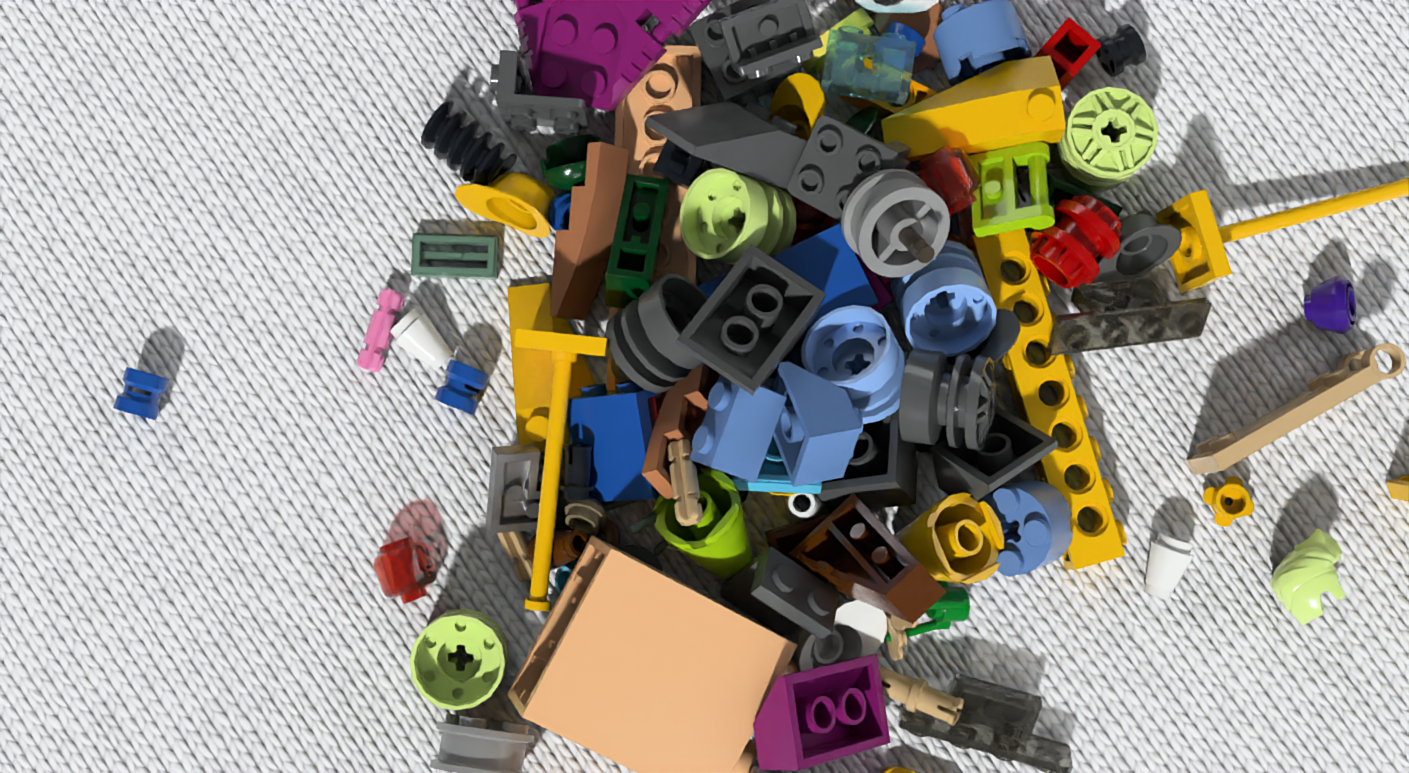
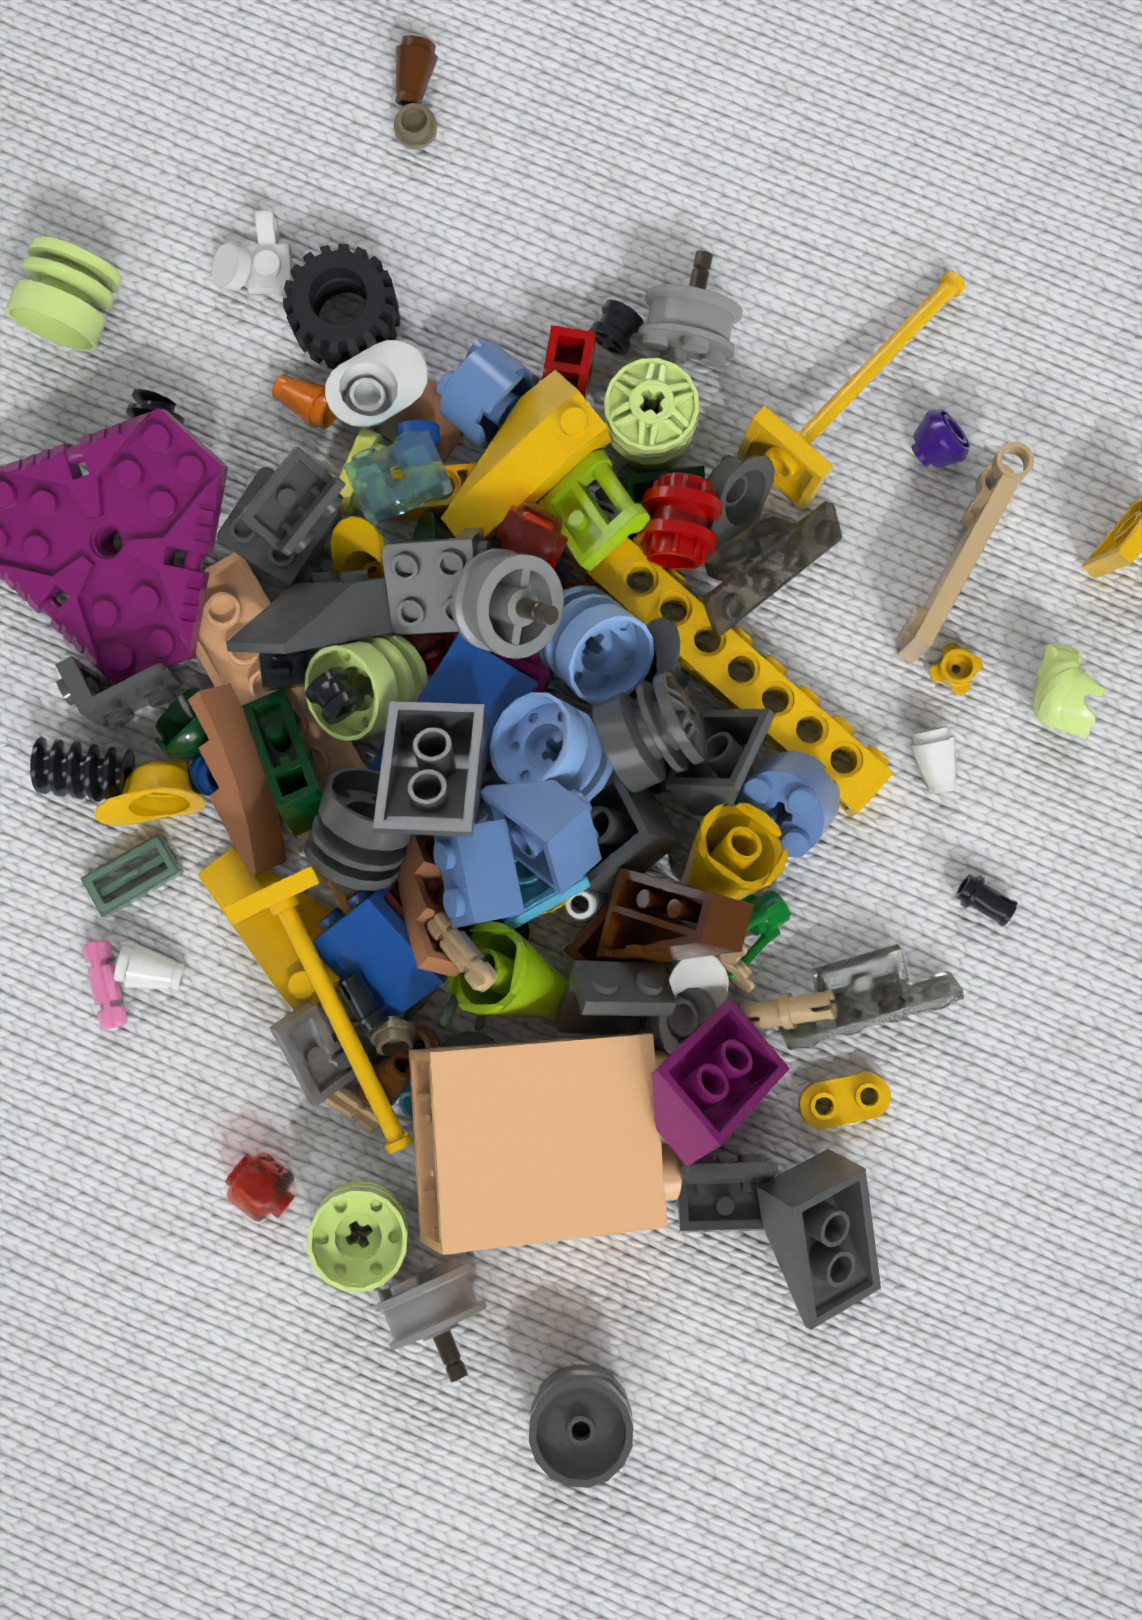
camera: 30 degrees left, 0 degrees up
(462, 387) = (211, 989): blue wheel -> none
(708, 211) = (334, 695): none -> black wheel
(1136, 706) = (985, 899): none -> black pin
(1186, 81) = (690, 319): none -> light grey wheel

